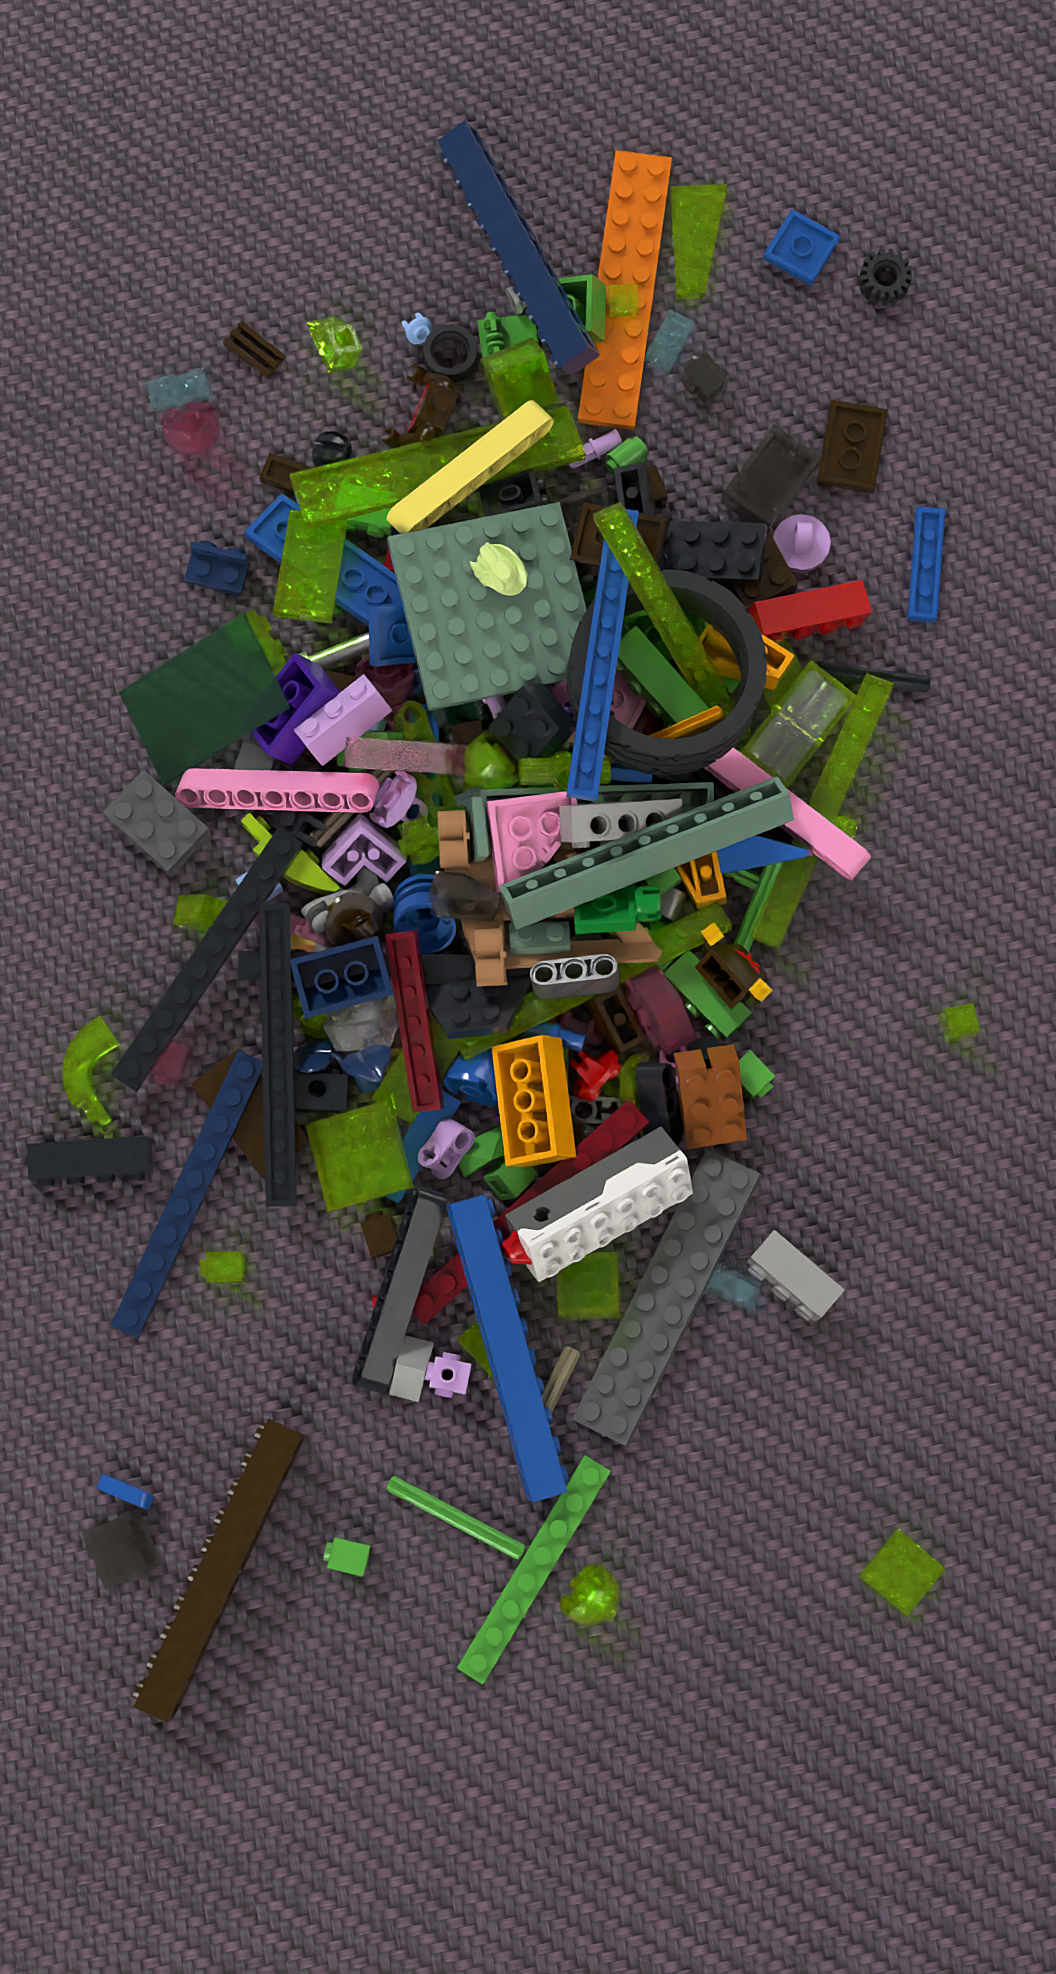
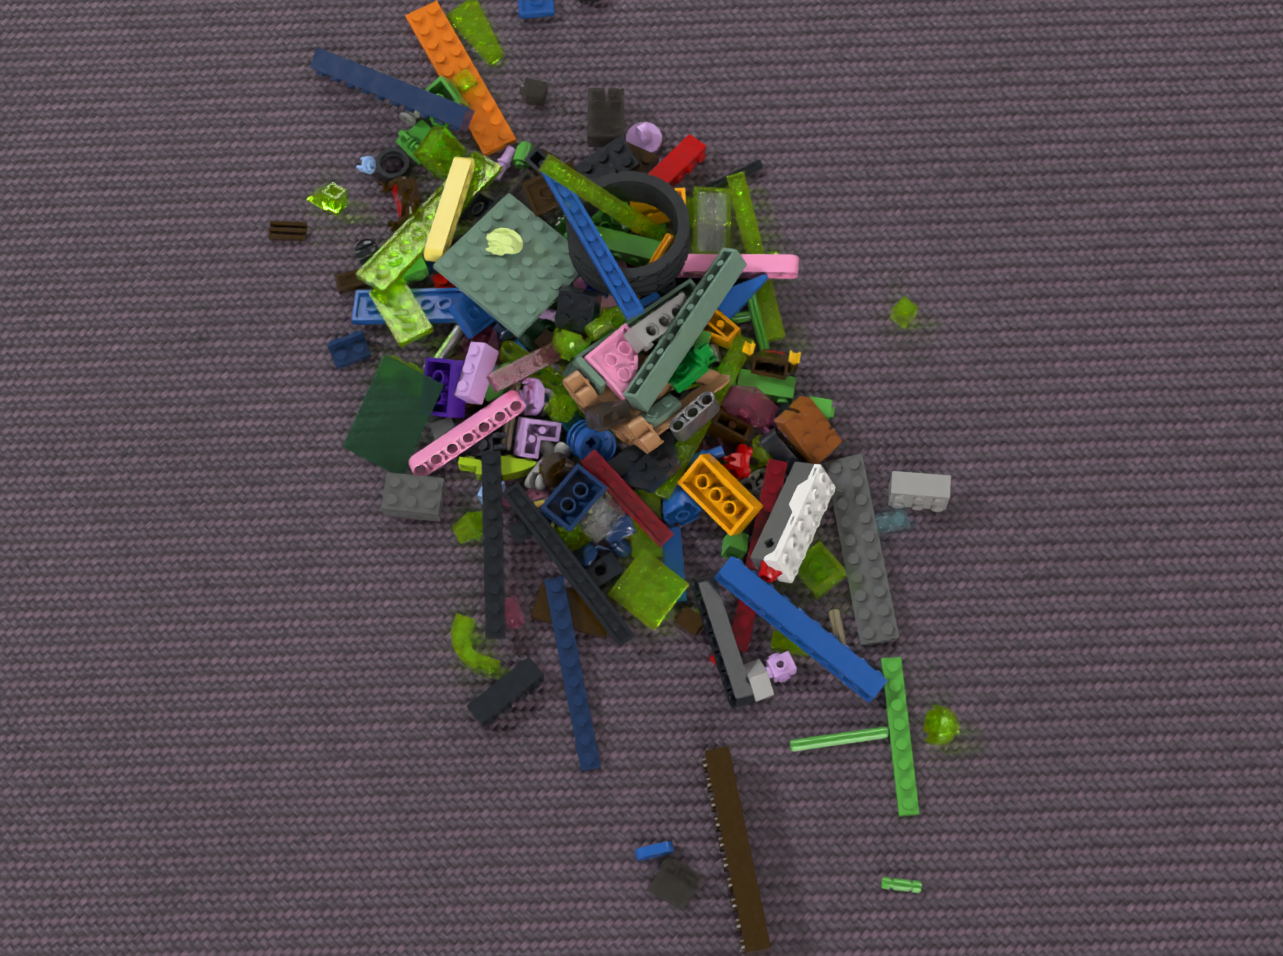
camera: 30 degrees left, 10 degrees down
(176, 391) = (263, 276): clear light blue slope -> none
(192, 428) = (285, 288): clear pink cylinder -> none
(223, 1267) = (619, 697): clear neon green brick -> none
(347, 1556) = (798, 798): bright green brick -> none
(394, 1755) = (901, 884): none -> bright green axle
(446, 1145) = (691, 551): lavender piece -> none
(484, 1151) = (710, 544): bright green slope -> none
(669, 341) = (502, 87): clear light blue plate -> none
(852, 446) = (634, 76): dark brown tile -> none
(902, 1572) = (1087, 601): clear neon green plate -> none
(926, 564) = (714, 108): blue tile -> none

